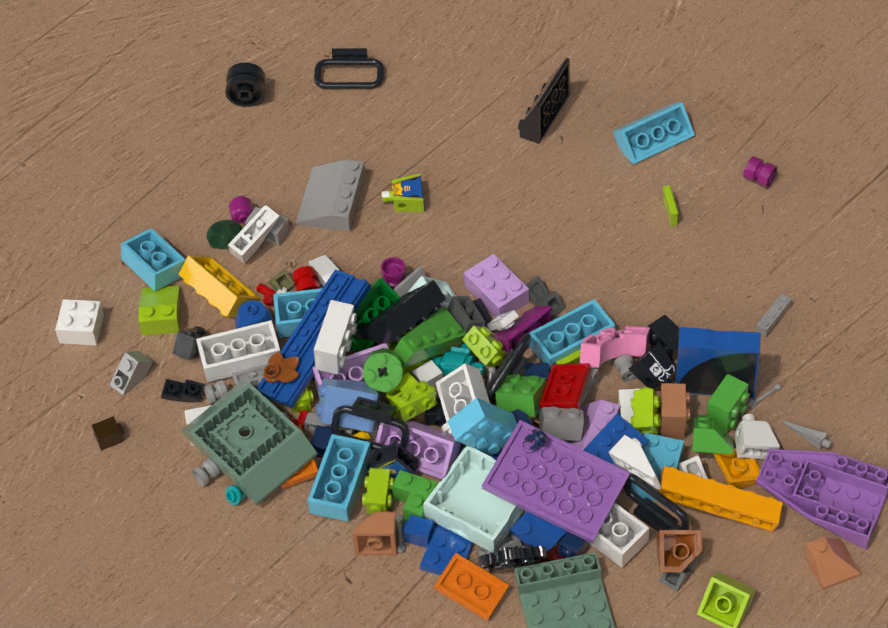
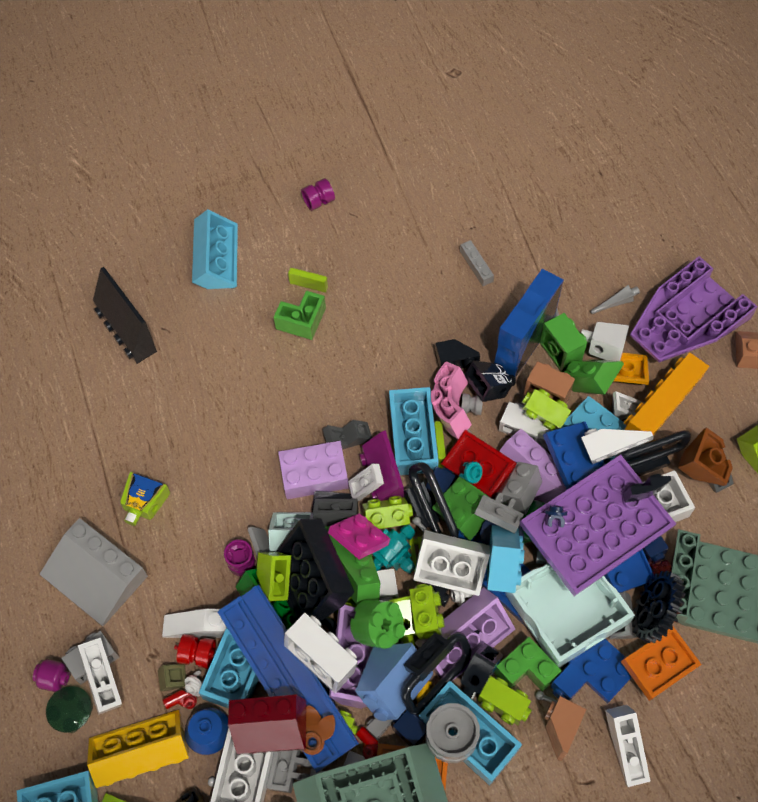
camera: 65 degrees left, 10 degrees up
(270, 337) = (268, 724): none -> dark red slope
(325, 452) = (463, 722): none -> light grey wheel
(387, 295) = (274, 574): none -> lime slope
(391, 589) = (628, 744): none -> white slope
(448, 329) = (359, 536): none -> dark pink plate
(520, 406) = (499, 513): none -> light grey hinge
(550, 380) = (472, 472): none -> teal plate
(610, 503) = (648, 488): none -> black slope
(630, 218) = (301, 319): none -> bright green brick

